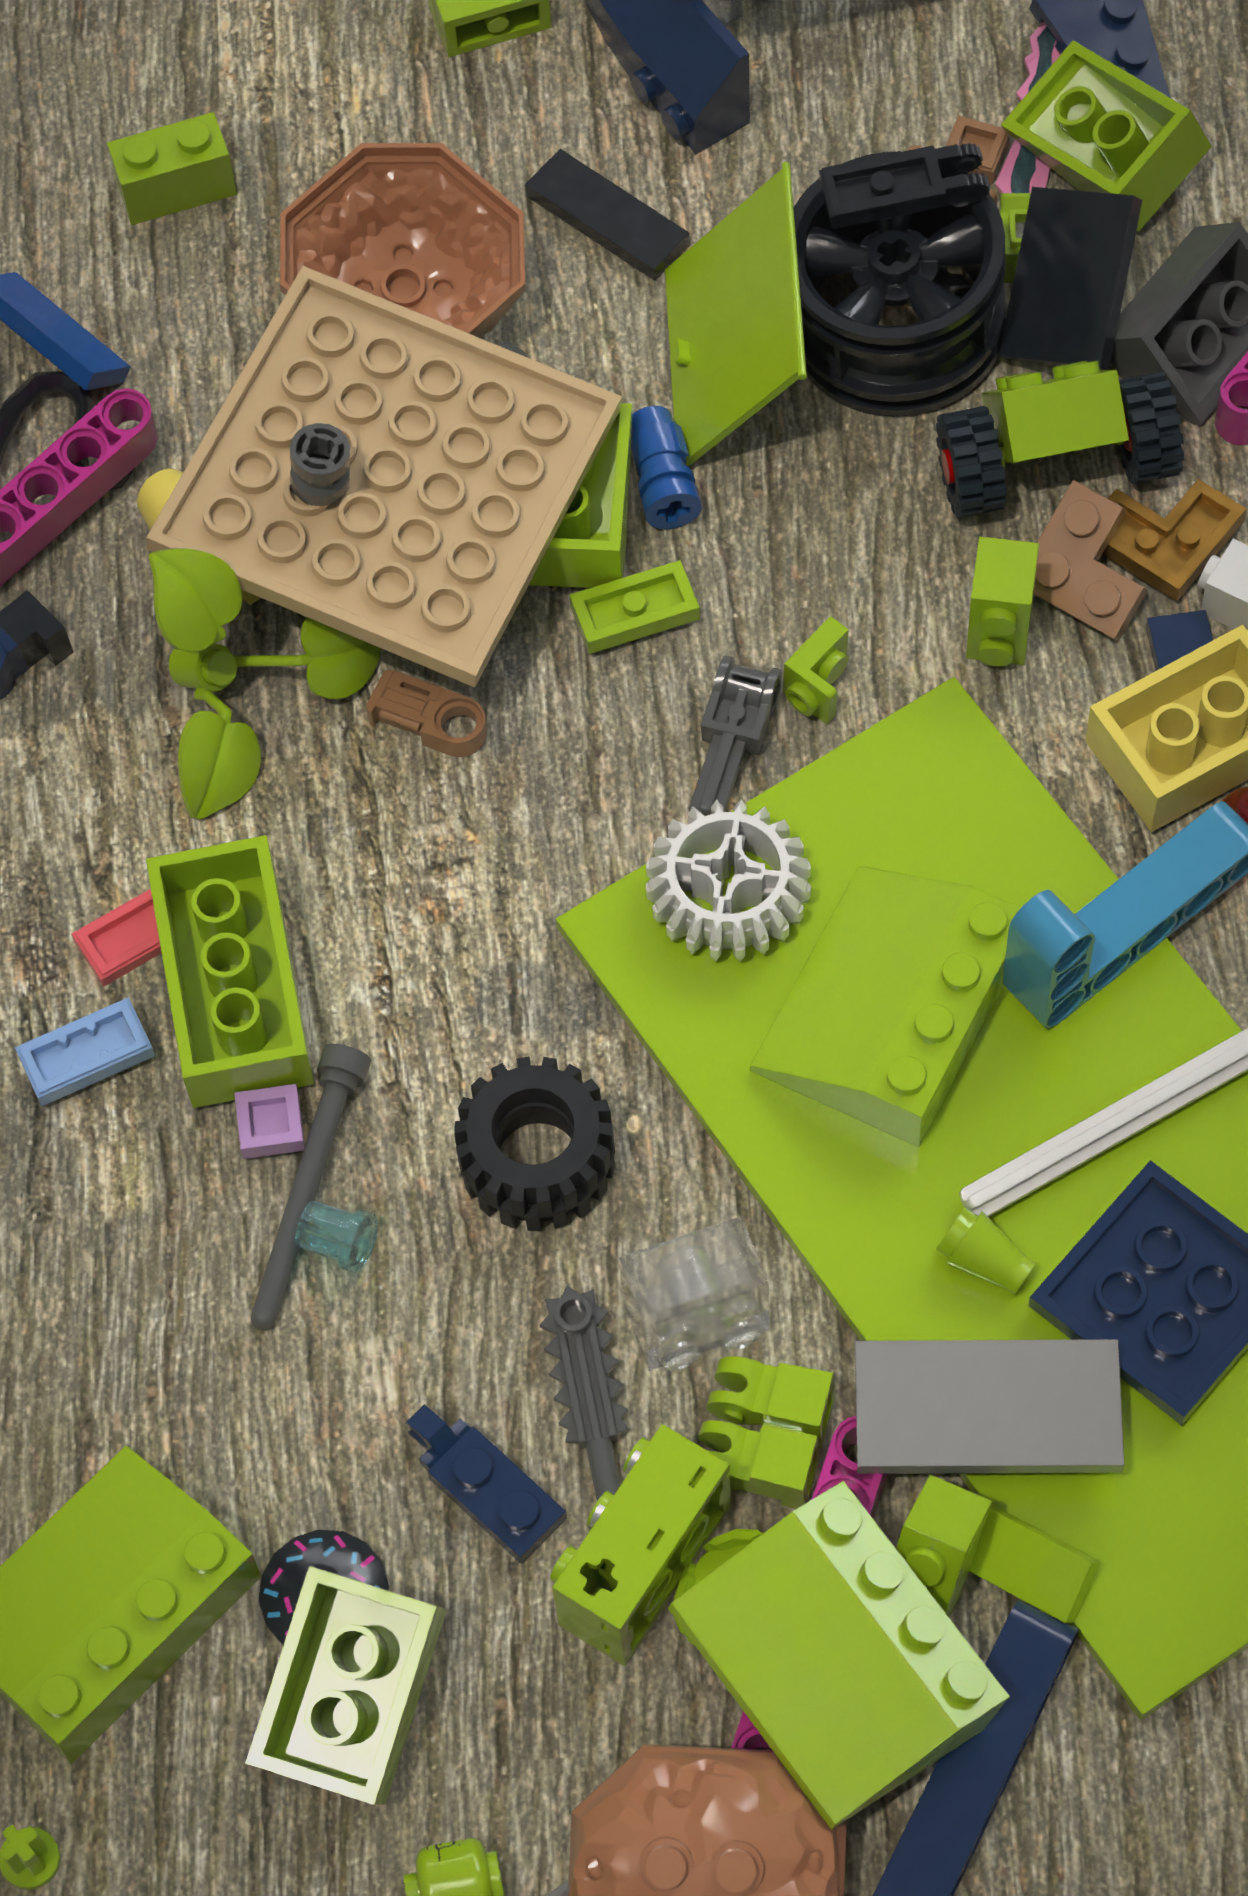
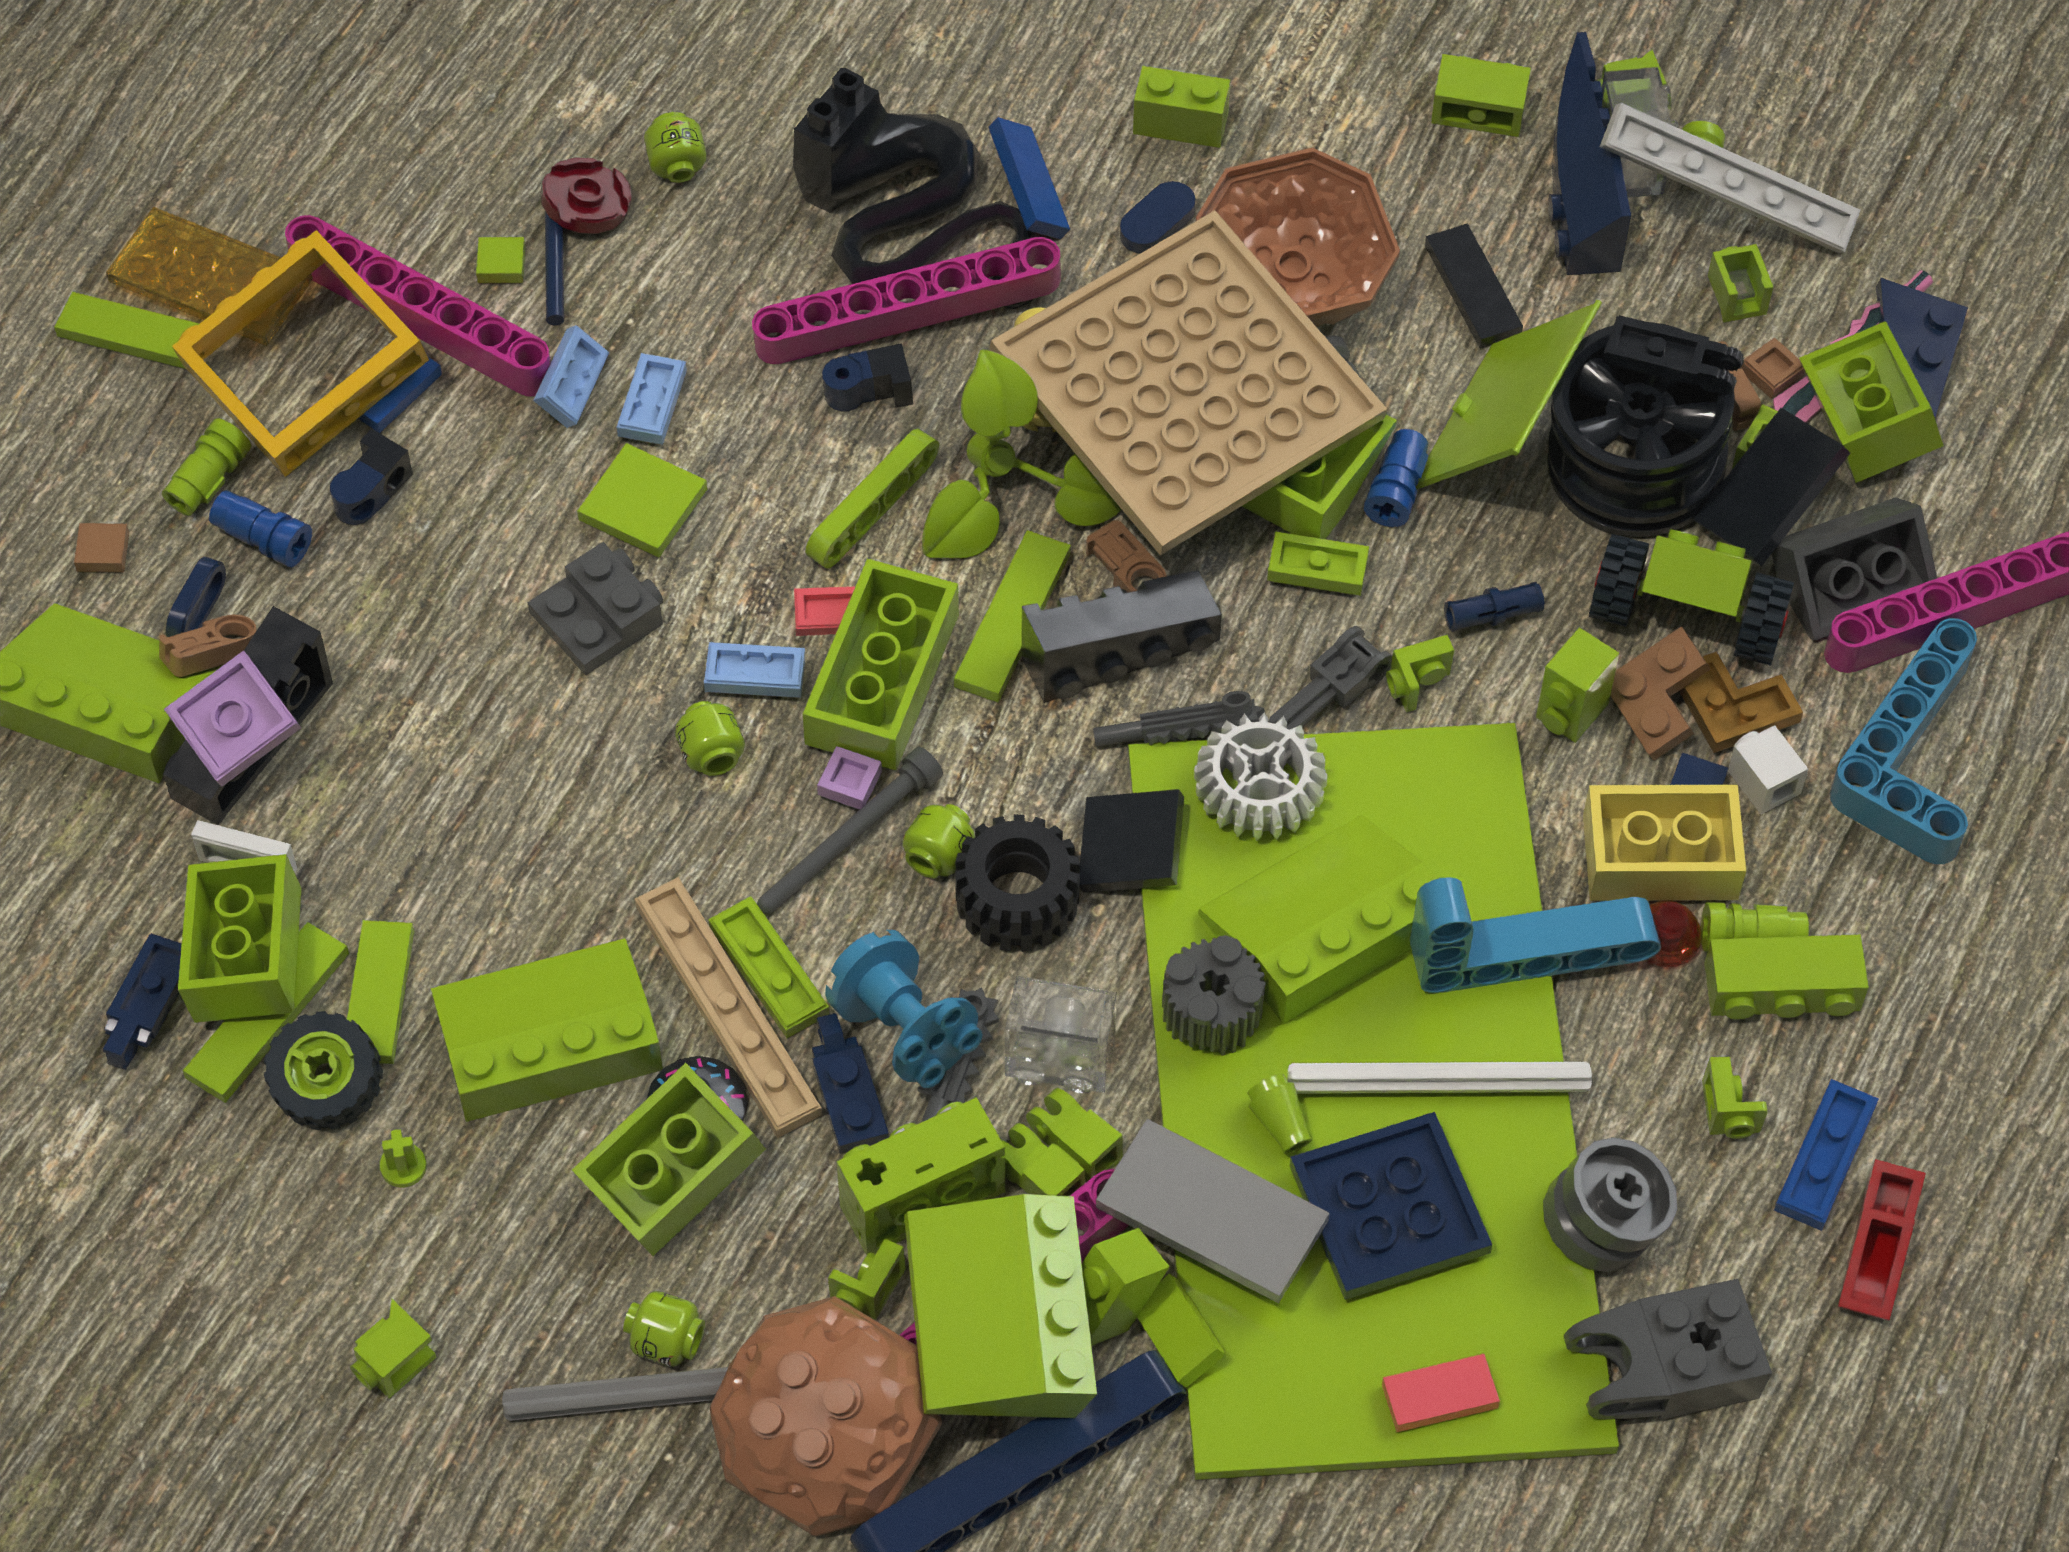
camera: 25 degrees right, 5 degrees down
(83, 1159) = (710, 738): none -> lime head
(98, 784) = (872, 498): none -> lime beam
(218, 305) = (1157, 216): none -> dark blue tile
(292, 1462) = (728, 1007): none -> tan tile
(310, 1390) = (768, 967): none -> lime tile
(320, 464) = (1138, 348): dark grey wheel -> none
(335, 839) = (999, 637): none -> lime tile
(347, 1238) = (851, 878): clear light blue bush -> none
(414, 1141) = (936, 840): none -> lime head
(455, 1345) = (878, 982): none -> dark azure piece
(469, 800) = (1116, 633): none -> black wedge
(600, 861) = (1181, 722): none -> dark grey piece
(629, 1026) = (1131, 840): none -> black tile
(655, 1685) = (874, 1282): none -> lime bracket
(851, 558) = (1494, 606): none -> dark blue pin
(863, 1165) = (1213, 995): none -> dark grey brick
(888, 72) = (1740, 282): none -> lime window

